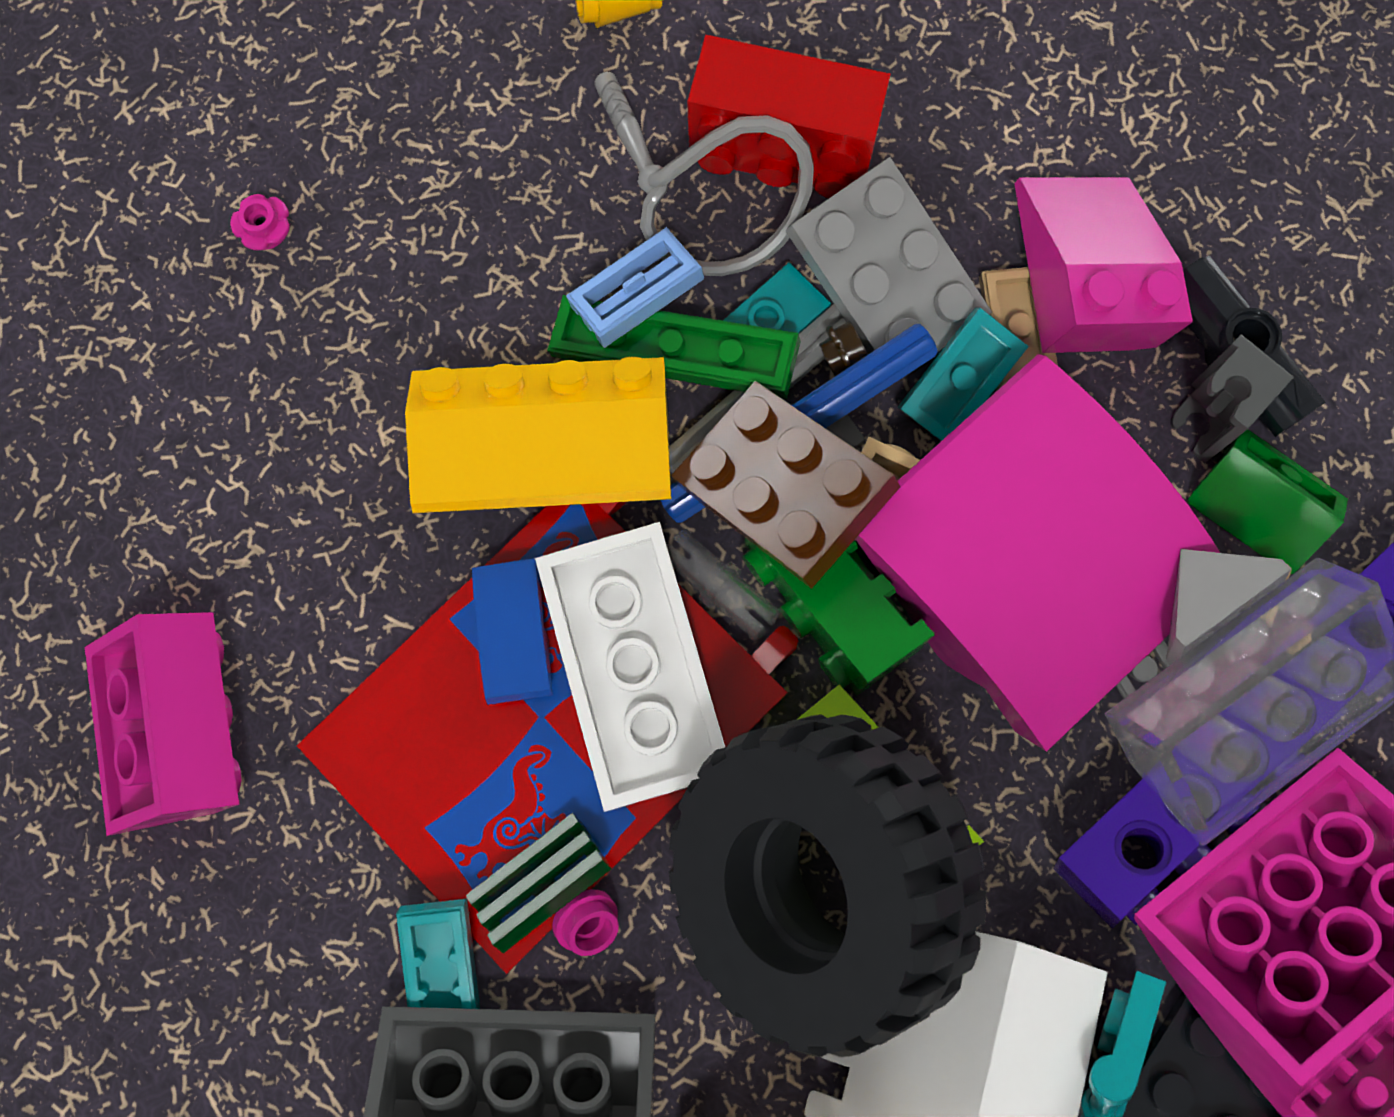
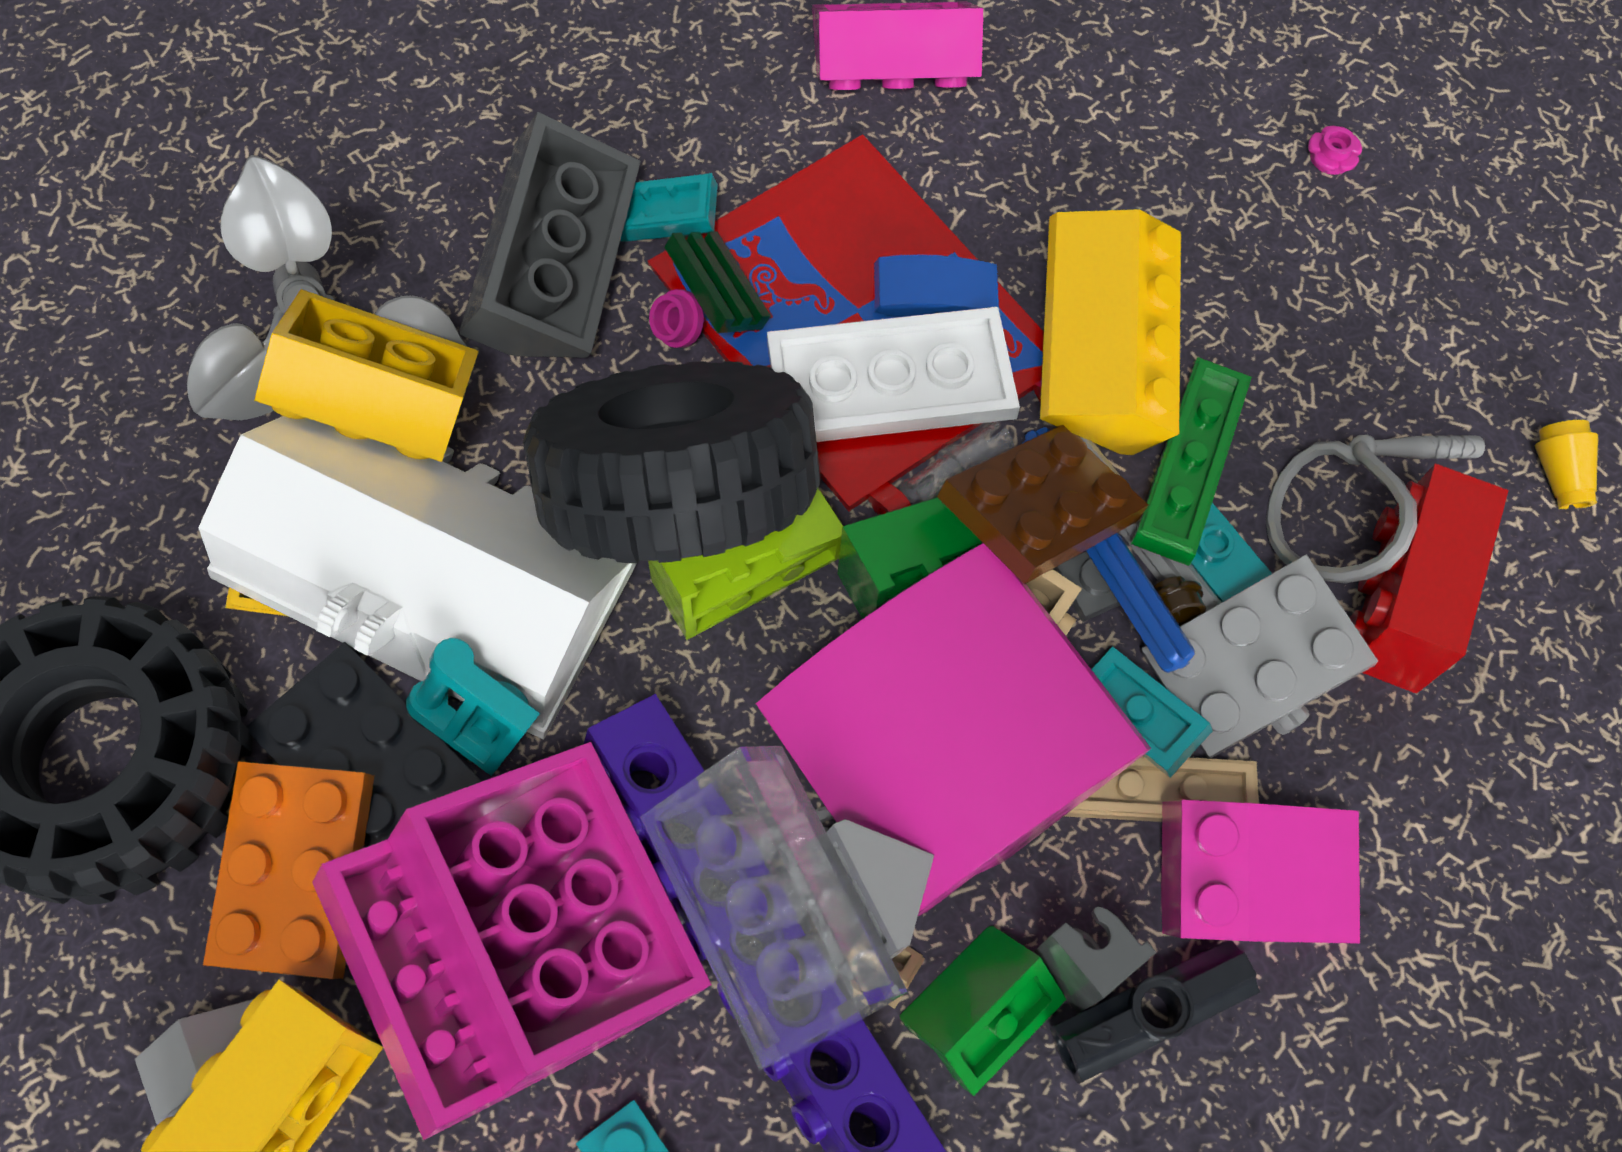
camera: 90 degrees right, 10 degrees down
(641, 292) = (1246, 430): light blue tile -> none

